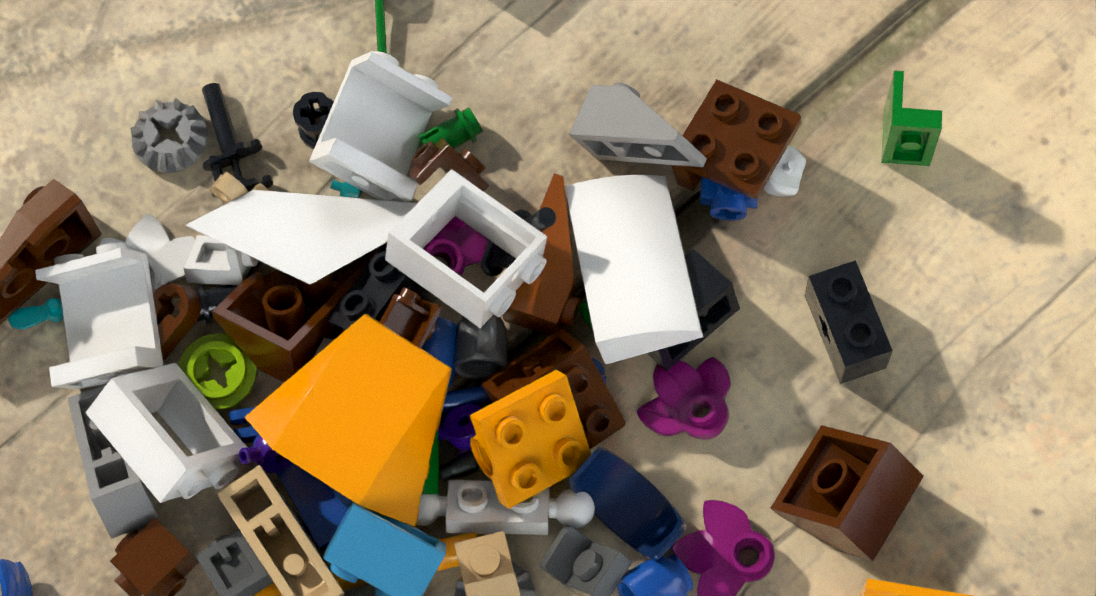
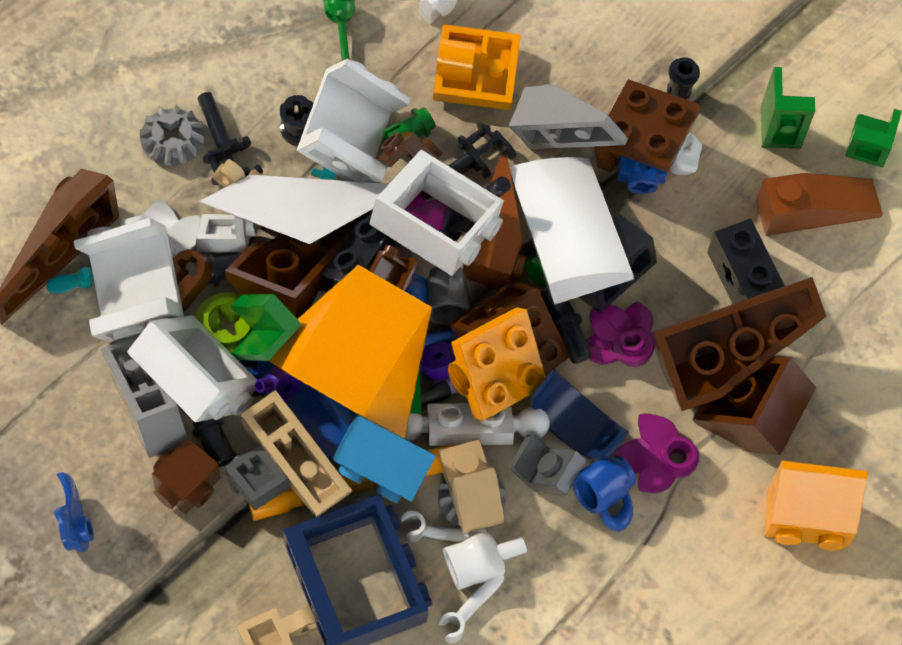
camera: 15 degrees left, 5 degrees down
(192, 521) = (214, 440): none -> black pin
(261, 388) = (270, 325): none -> green panel
(525, 170) = (472, 156): none -> black piece
(536, 57) = (476, 67): none -> light orange plate
(624, 386) = (569, 328): none -> black axle
(786, 75) = (682, 75): none -> black pin
(815, 419) = (724, 346): none -> reddish brown wedge
(942, 236) = (815, 201): none -> dark orange slope
(1018, 156) = (872, 138): none -> green panel

